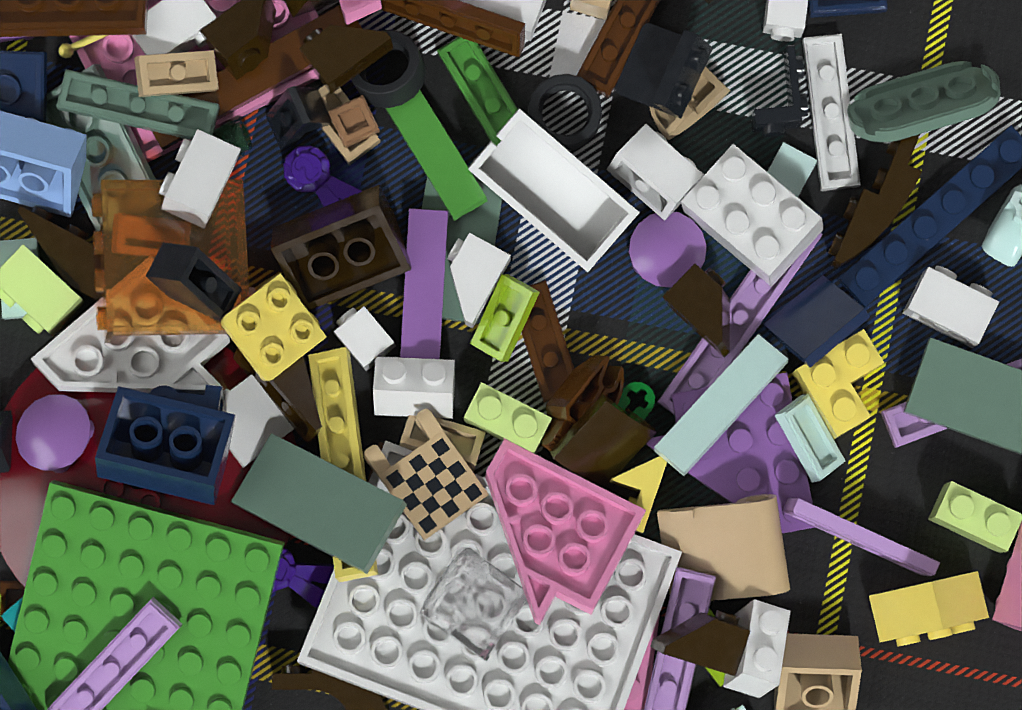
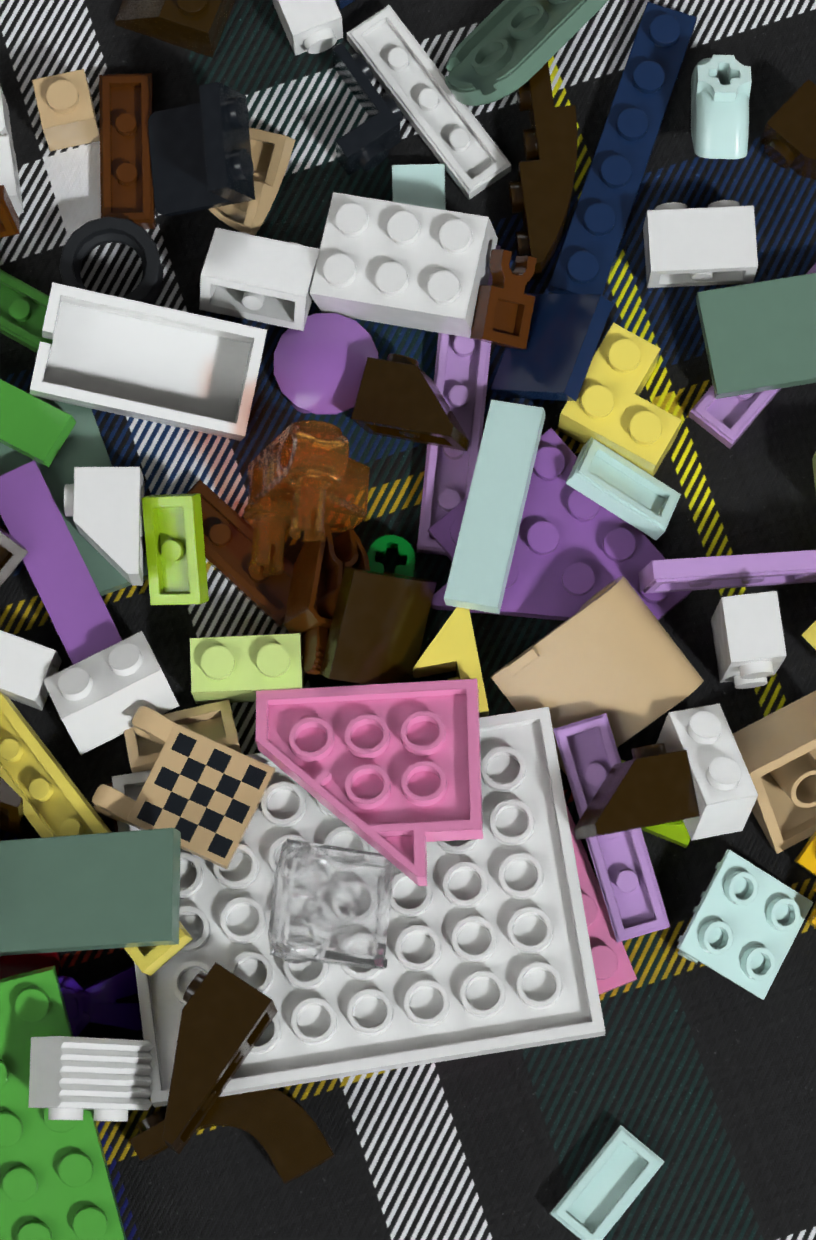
camera: 30 degrees left, 5 degrees down
(268, 623) = (89, 1075): none -> white brick
(356, 644) = (214, 1038): none -> dark brown slope
(609, 324) = (301, 486): none -> clear orange piece
(800, 280) = (502, 308): none -> reddish brown plate
(832, 580) = (748, 638): none -> white brick

